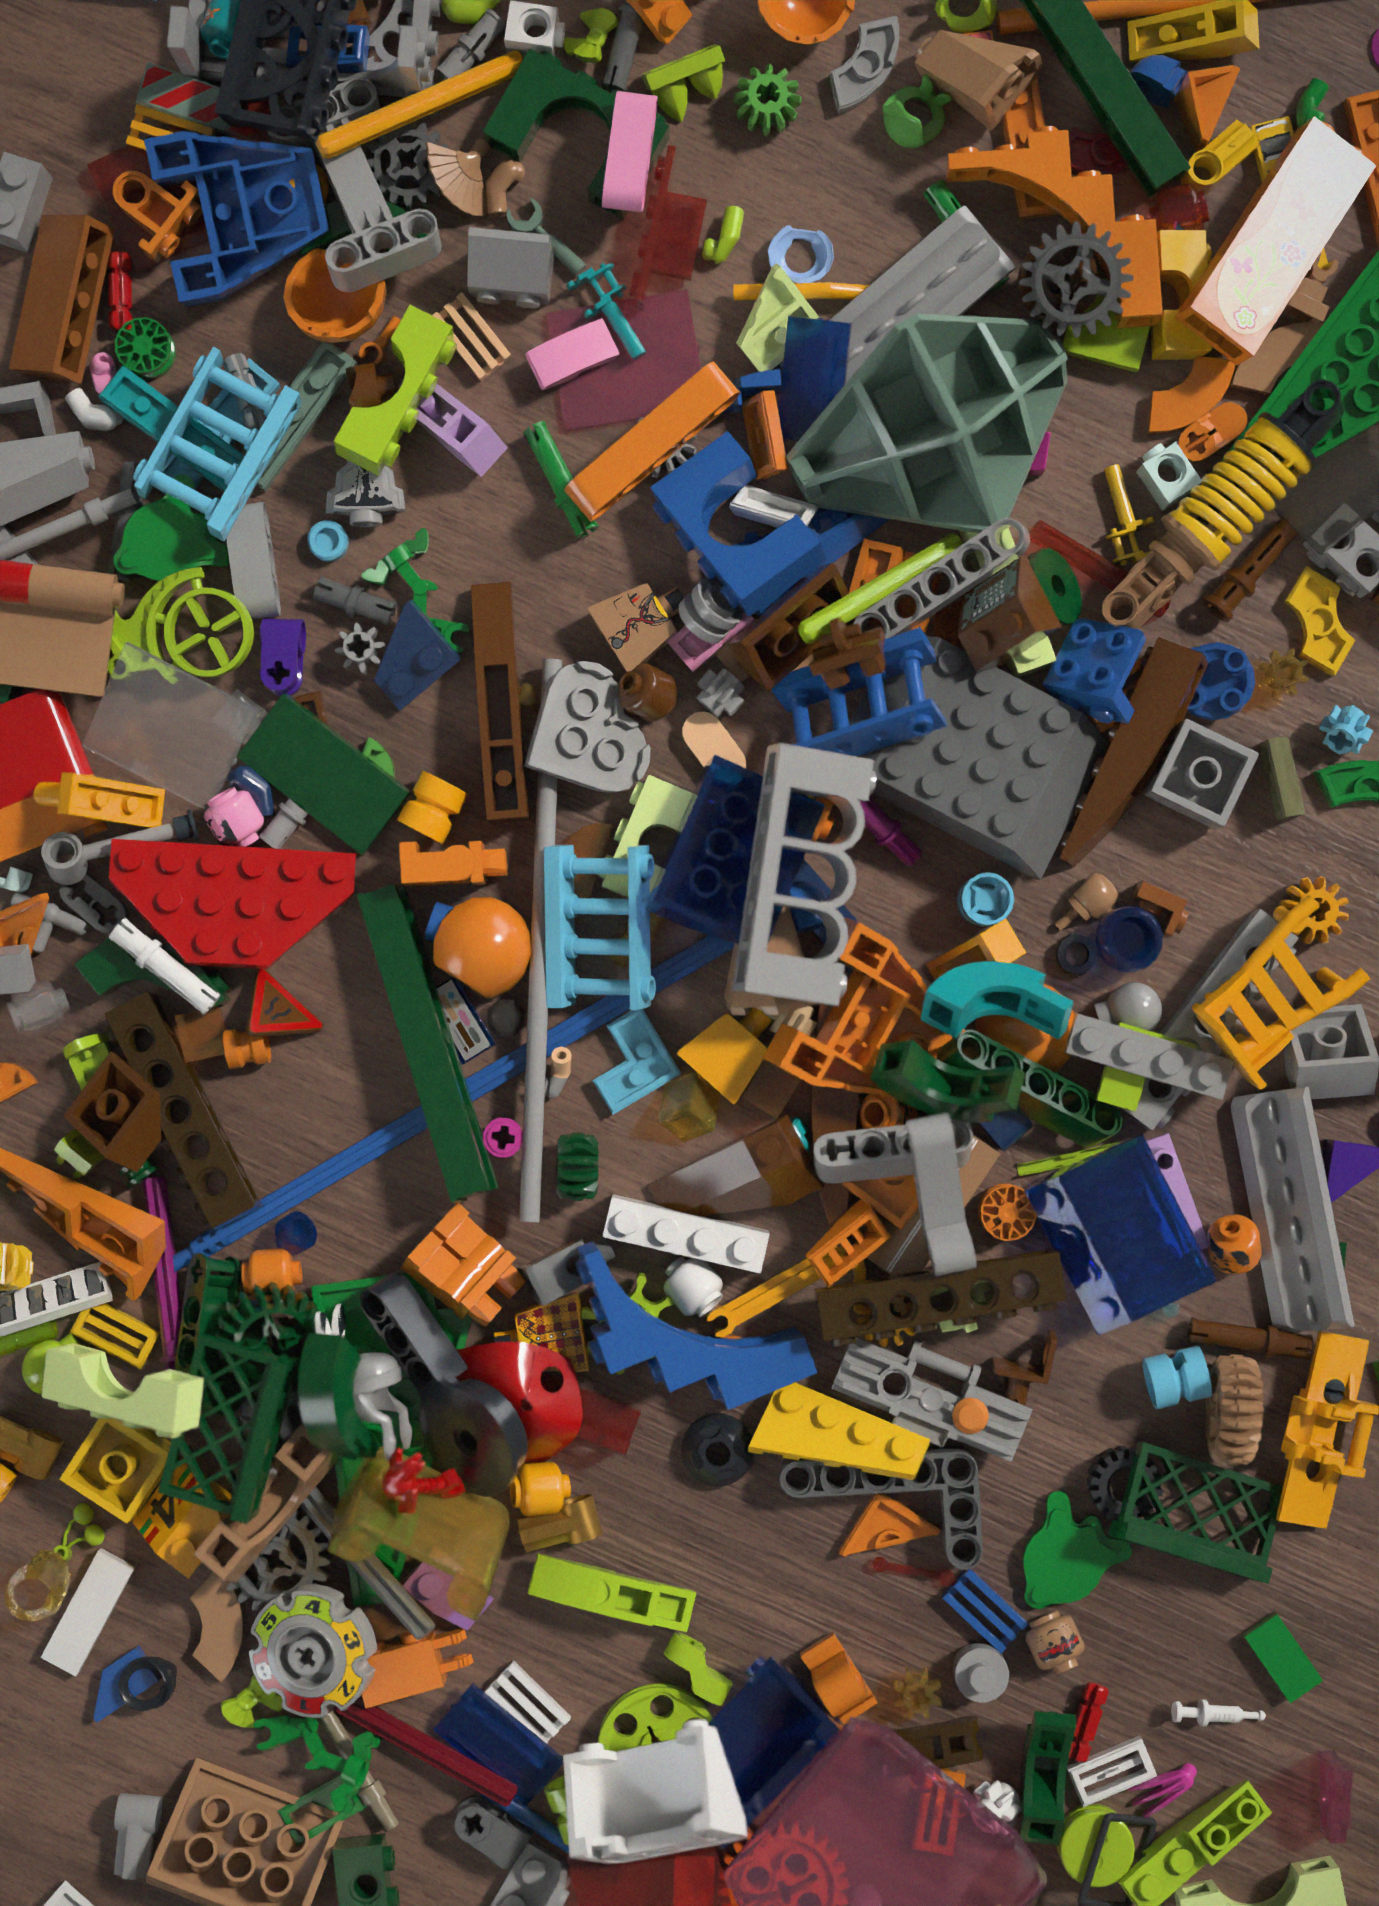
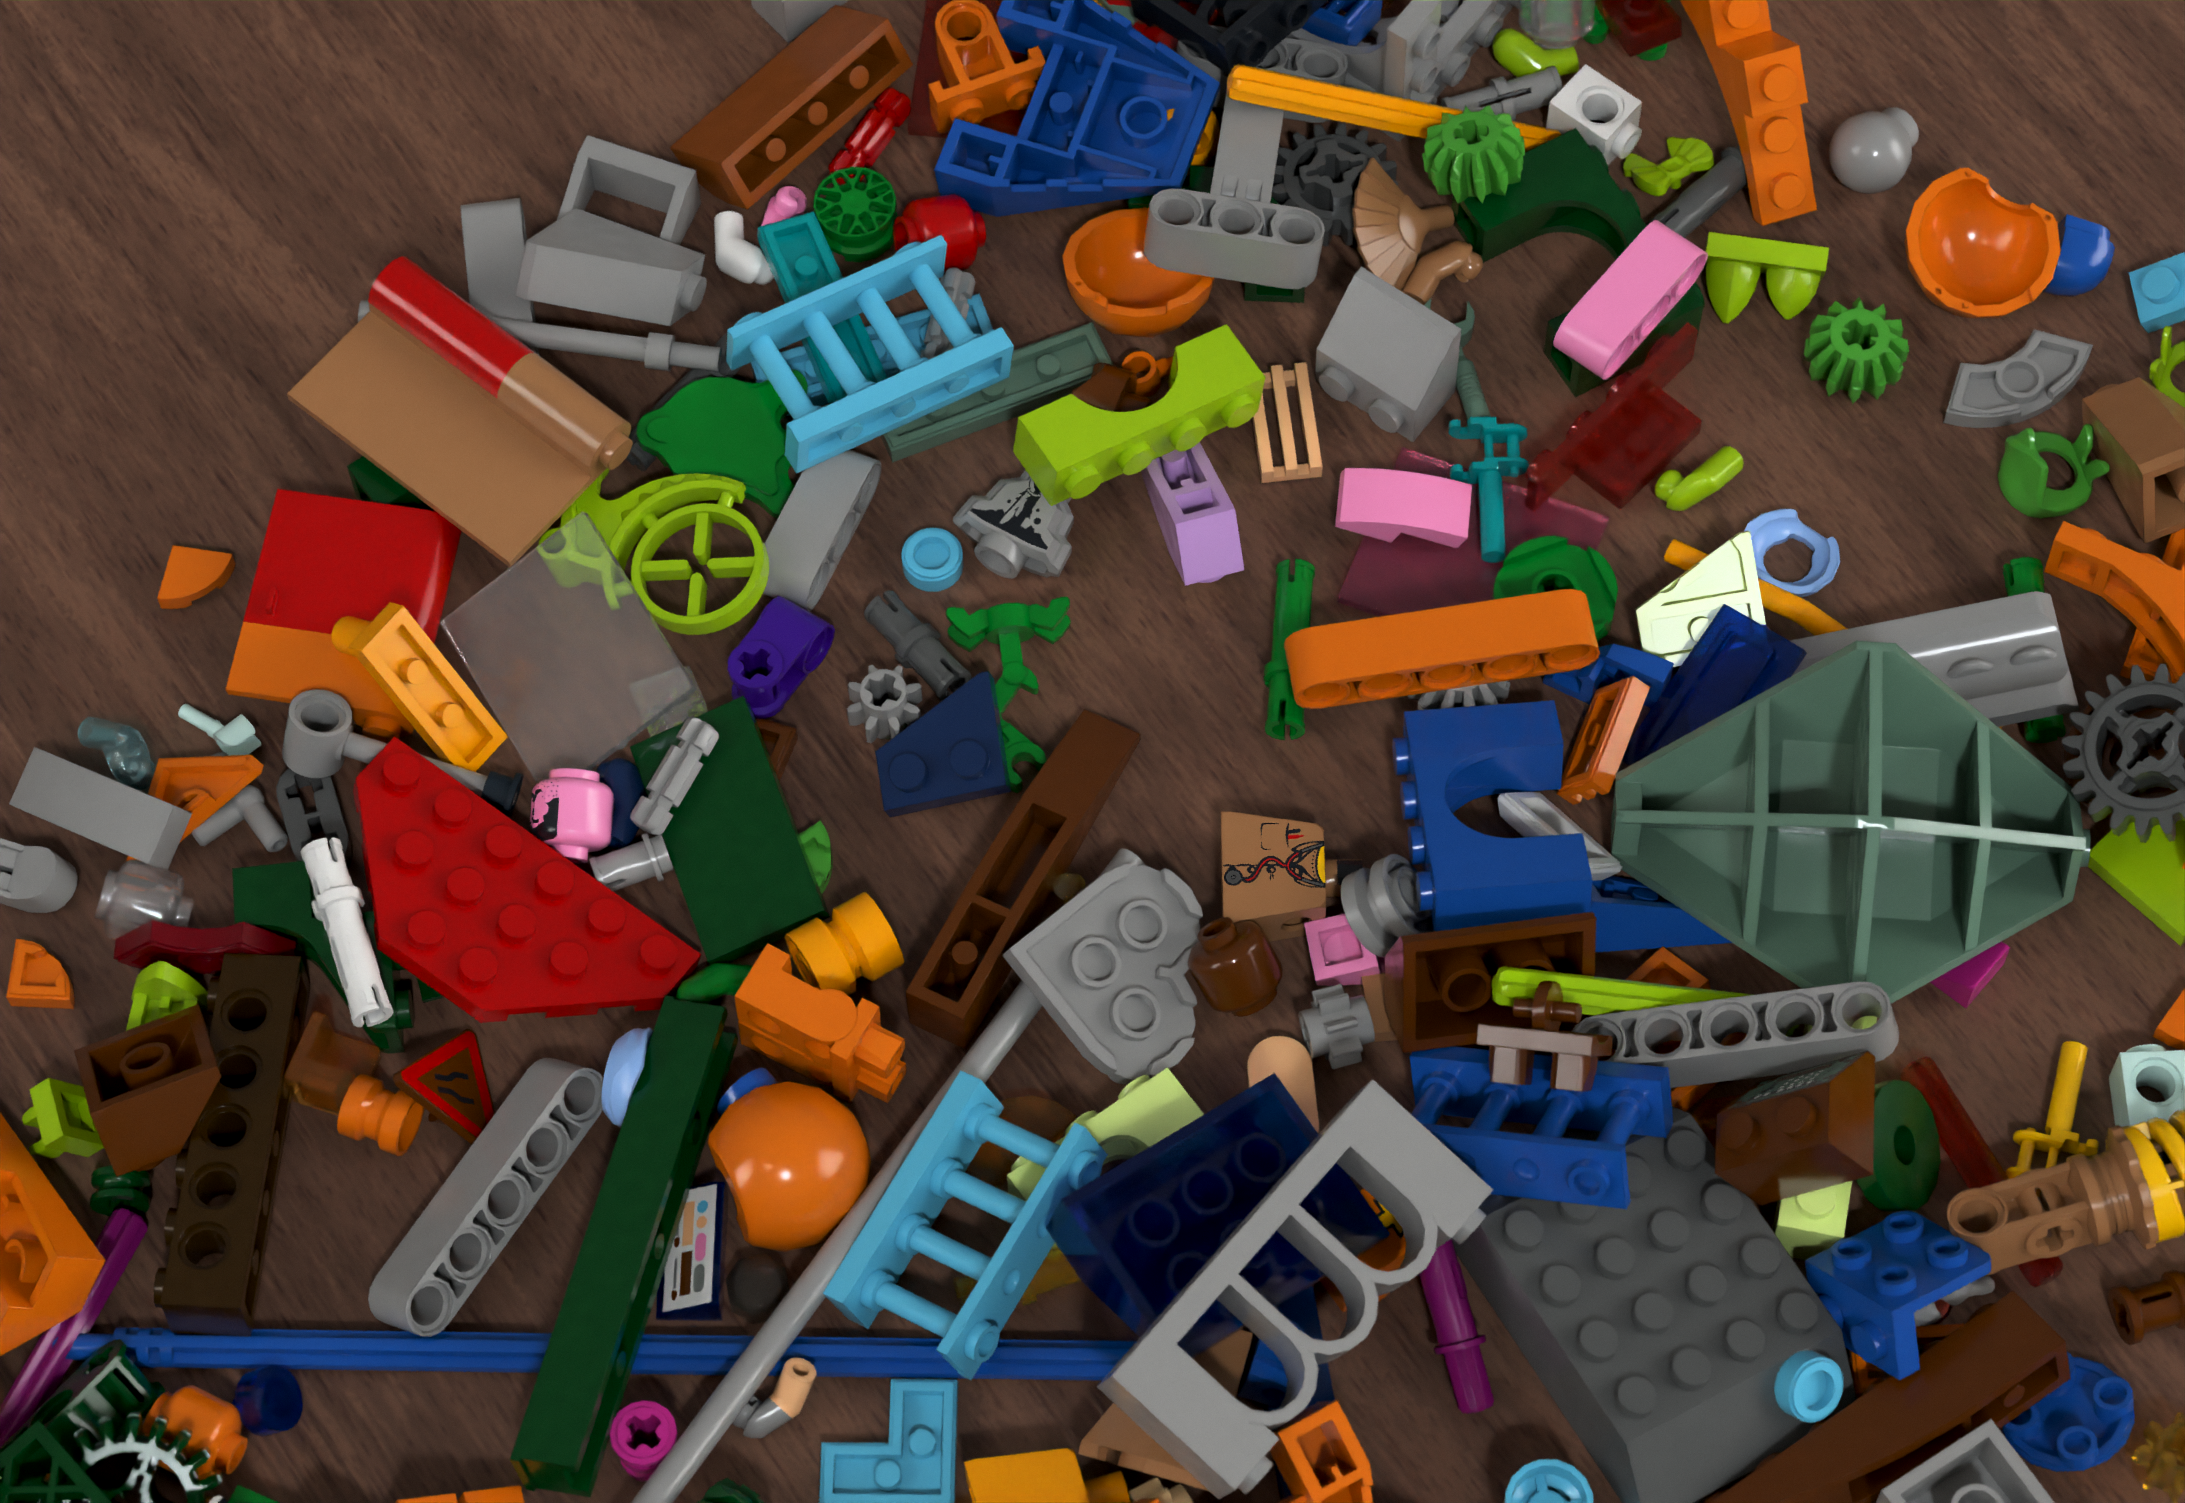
camera: 30 degrees right, 25 degrees down
(88, 1015) = (196, 948): none -> dark red tile
(200, 331) = (947, 217): none -> red head
(276, 763) = (674, 776): none -> light grey axle
(335, 1057) = (487, 1197): none -> light grey beam
(363, 949) = (623, 1071): none -> light blue piece
(372, 864) = (713, 983): none -> green arm
(485, 106) = (1473, 154): none -> bright green gear
(685, 340) = (1564, 566): none -> green plate
(1082, 753) = (1808, 1386): none -> medium azure tile

